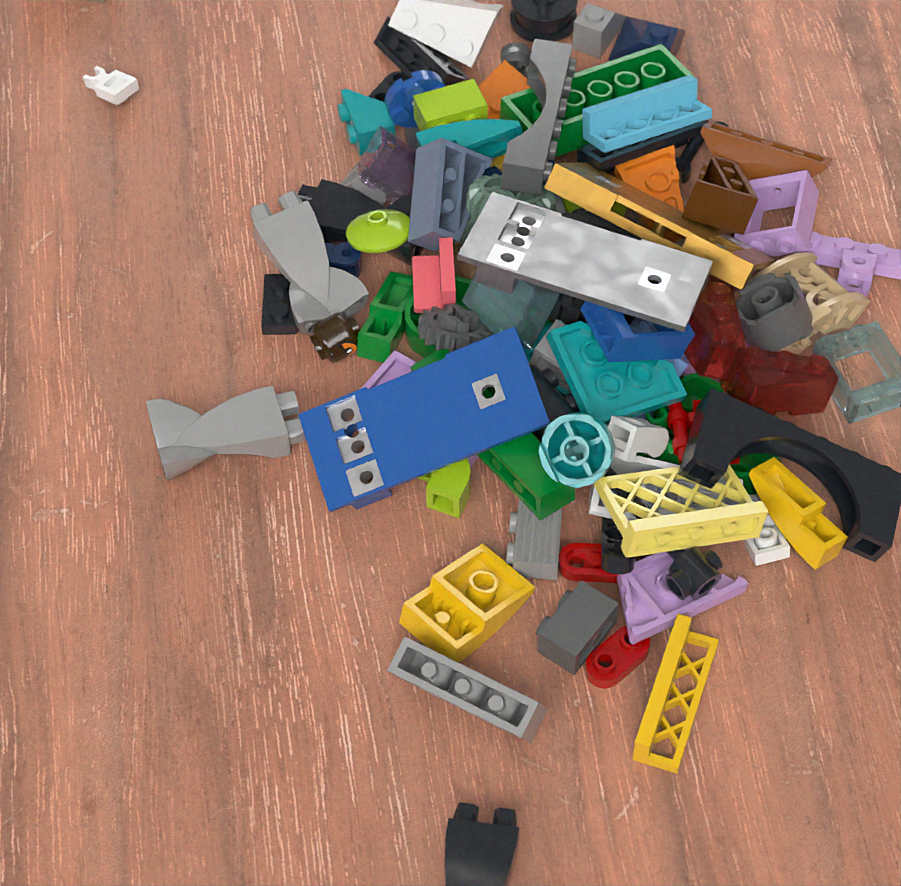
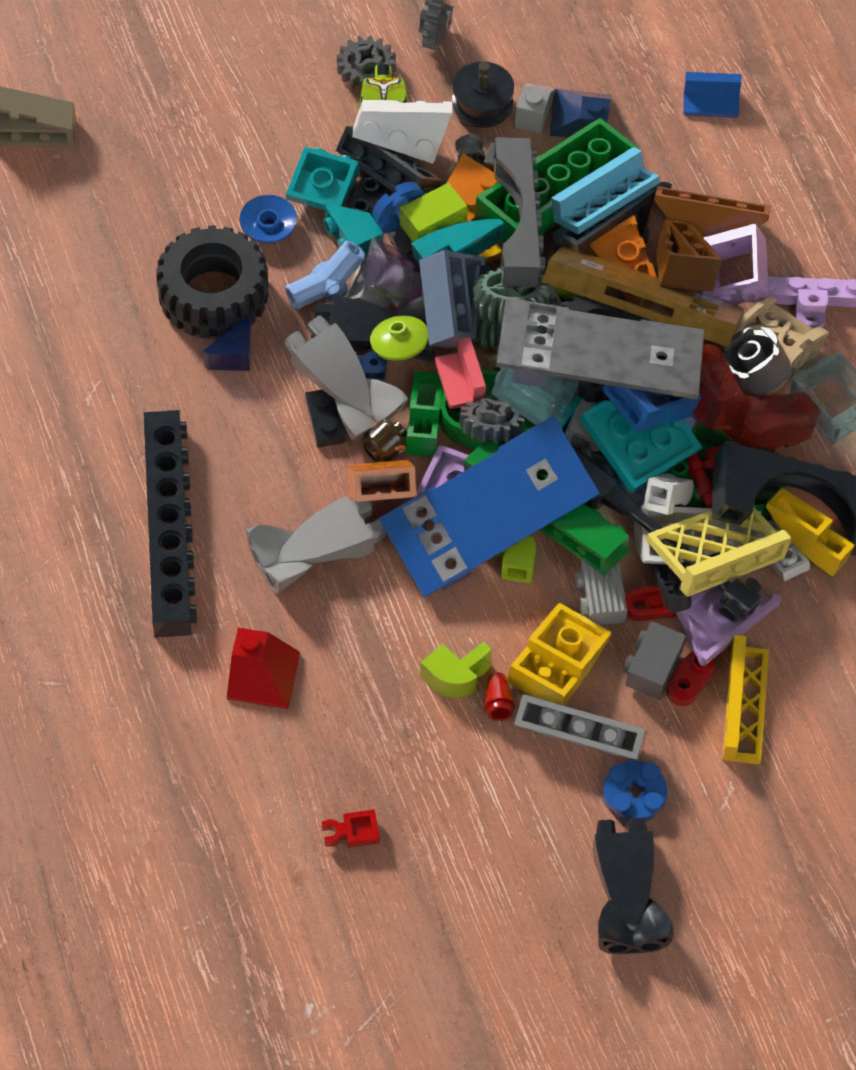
camera: 15 degrees left, 5 degrees up
(69, 388) = (169, 618): none -> black brick
(112, 87) = (113, 232): white plate -> none
(122, 558) = (262, 669): none -> red slope
(172, 760) = (358, 829): none -> red plate
(191, 118) = (207, 252): none -> black tyre
(199, 218) = (231, 350): none -> clear blue slope
(279, 96) = (268, 210): none -> blue dish
(313, 374) = (382, 480): none -> orange brick
(322, 161) = (326, 278): none -> light blue piece
(339, 605) = (453, 676): none -> lime brick
(348, 64) = (322, 178): none -> teal plate
(382, 638) = (498, 699): none -> red cone
(521, 756) = (640, 774): none -> blue plate
(577, 449) = (629, 514): teal cylinder -> none
(795, 43) = (711, 94): none -> blue panel

